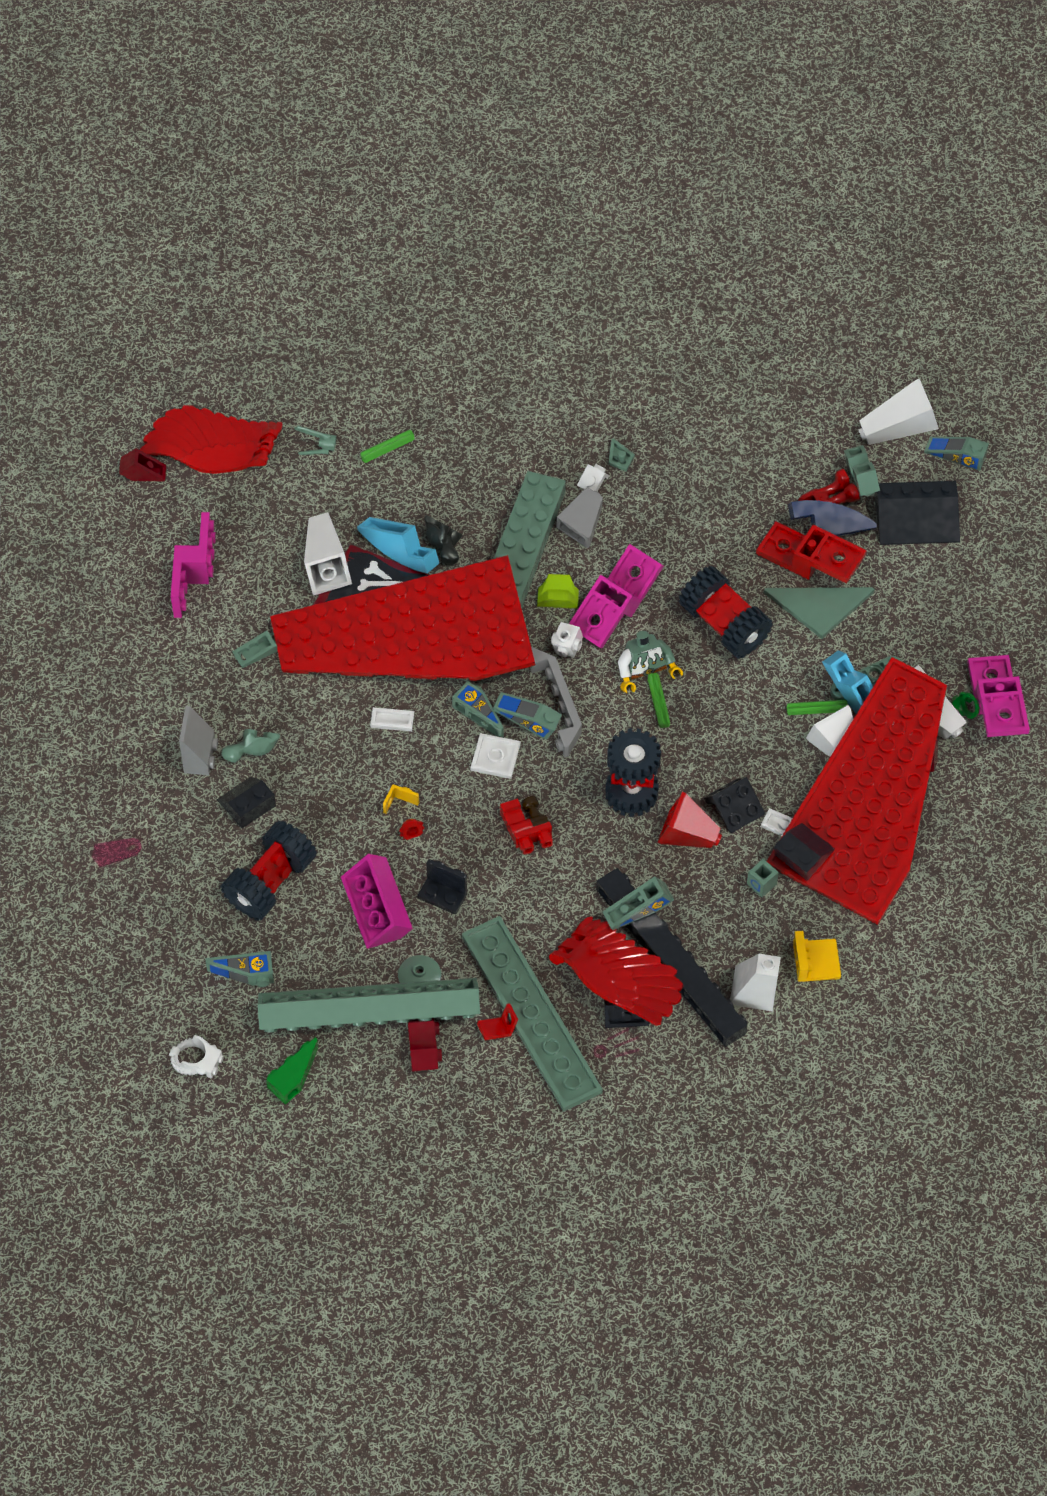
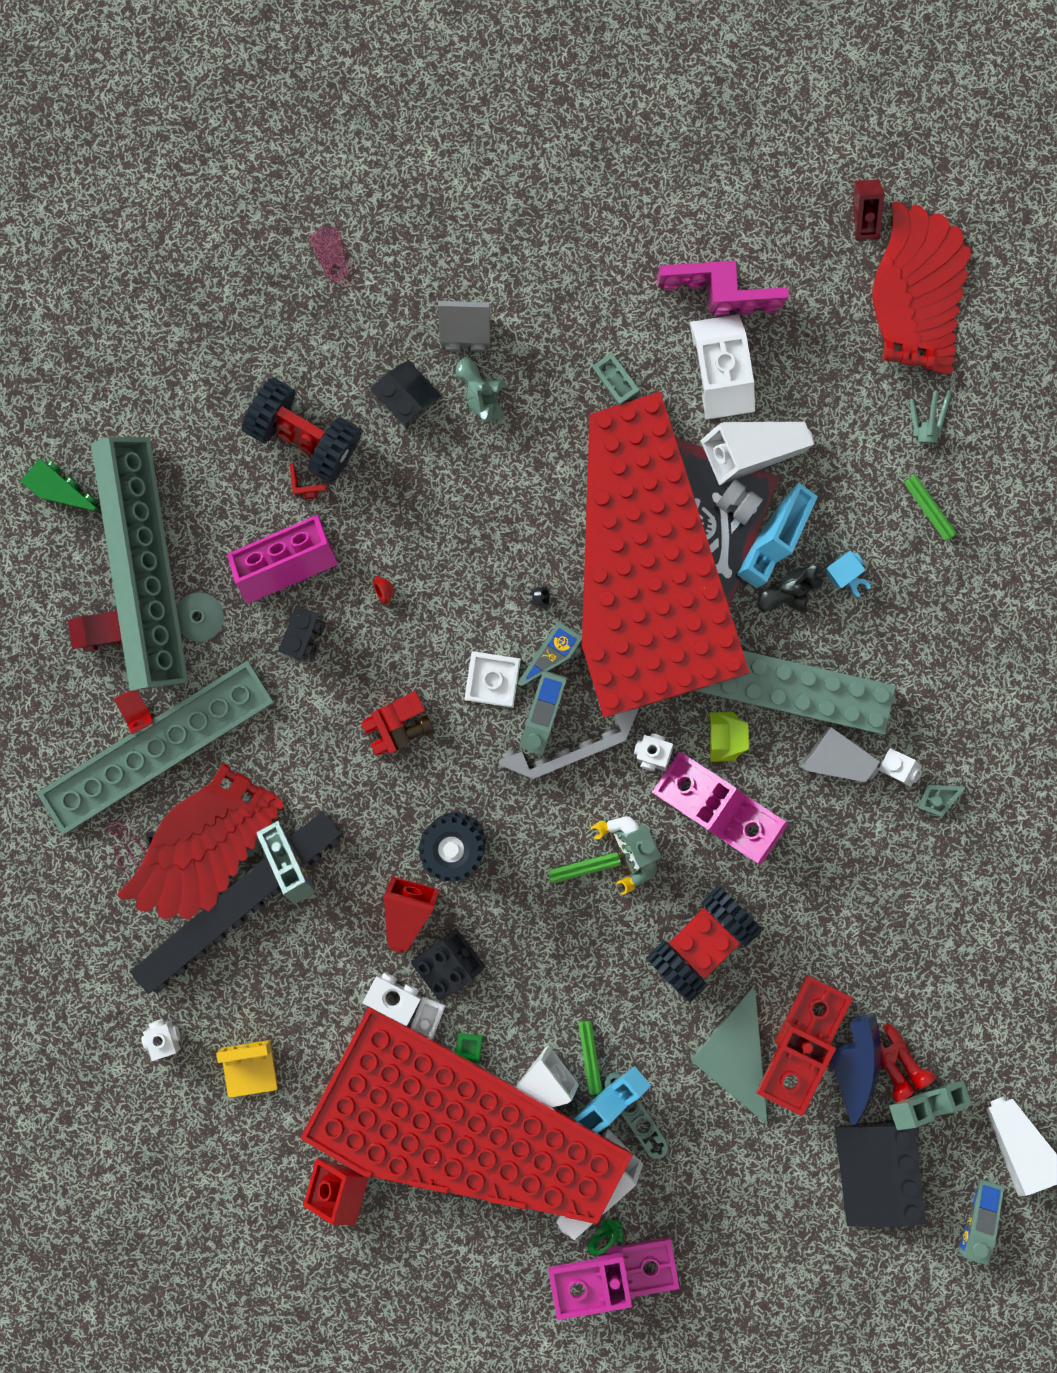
camera: 85 degrees right, 30 degrees up
(207, 1065) = (69, 395): white piece -> none
(245, 968) = (183, 422): slope -> none
(254, 567) = (724, 366): none -> white slope
(316, 885) = (308, 492): none -> red bracket
(367, 567) = (739, 502): none -> light grey wheel
(392, 719) = (533, 552): white tile -> none
(401, 793) = (428, 576): yellow bracket -> none
(429, 714) = (536, 595): none -> black hinge
(432, 502) = (845, 572): none -> medium azure brick
(756, 982) = (202, 1004): white slope -> none
(761, 833) = (400, 1011): none -> white brick
(762, 878) = (343, 1003): sand green brick -> none
(787, 1021) = (157, 1047): none -> white brick
(801, 792) = (469, 1046): none -> green tile
(803, 850) = (377, 1052): black slope -> none
(924, 899) = (335, 1192): none -> red slope

